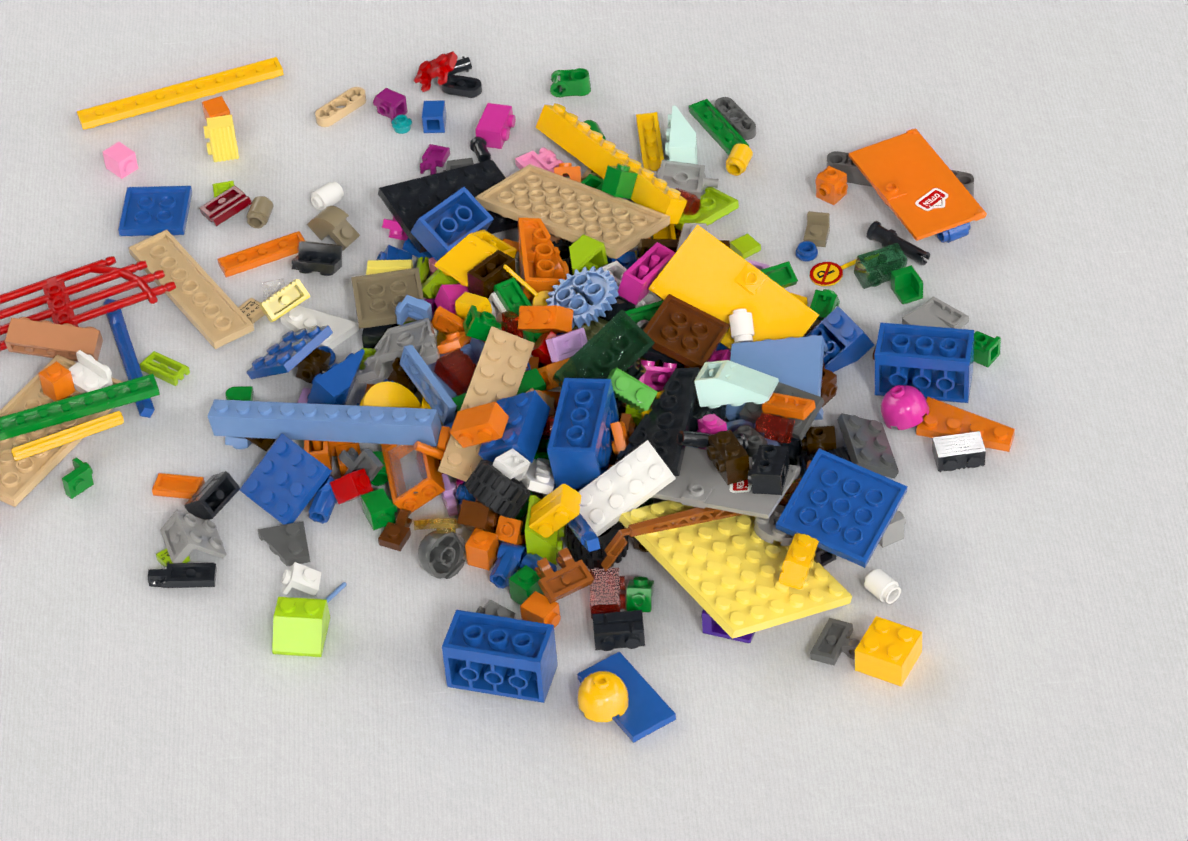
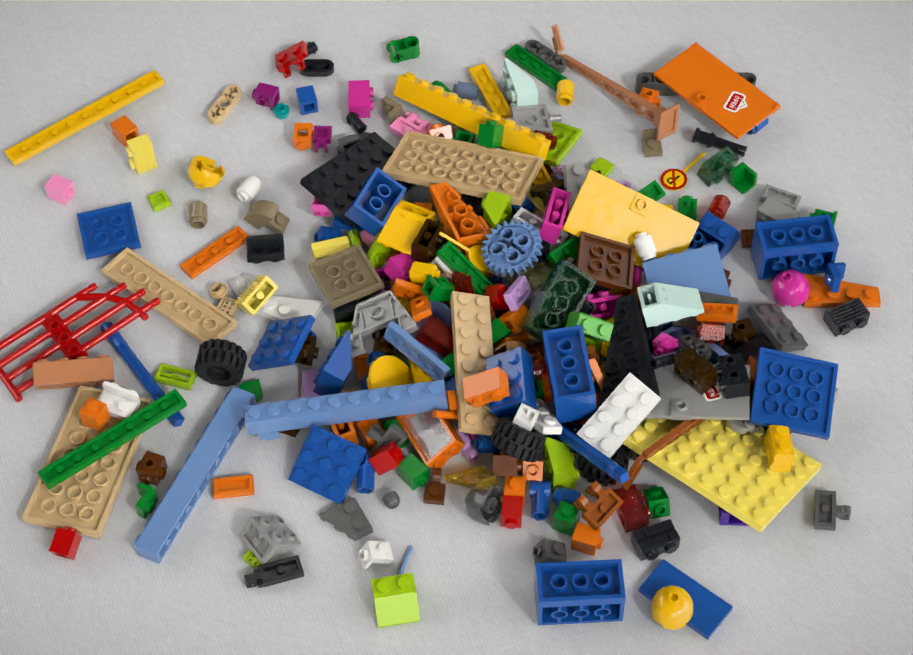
camera: 20 degrees left, 10 degrees up
(66, 436) = (122, 462): yellow axle -> none
(96, 448) = (151, 468): none -> reddish brown brick
(134, 469) = (194, 477): none -> medium blue brick
(212, 496) = (270, 493): black brick -> none
(213, 358) = (220, 362): none -> black tyre
(225, 205) = (167, 214): dark red plate -> none
(247, 291) = (218, 290): none -> tan plate
(284, 169) = (204, 172): none -> yellow cylinder
(342, 531) = (391, 500): none -> dark grey hinge
(410, 157) = (303, 140): none -> orange brick
(413, 308) = (376, 284): medium blue bracket -> none
(470, 569) = (512, 511): none -> red brick
(526, 141) = (391, 108): none -> dark tan bracket
(545, 319) = (492, 274): orange brick -> none
(555, 510) = (574, 450): yellow brick -> none
(622, 138) = (466, 90): none -> sand blue brick
(806, 251) = (652, 163): blue plate -> none
(836, 200) = (664, 119): none -> nougat piece
(863, 309) = (719, 206): none -> clear red brick
(882, 586) = (842, 450): white brick -> none
(888, 651) = (874, 509): yellow brick -> none
(963, 400) = (833, 275): none -> blue bracket

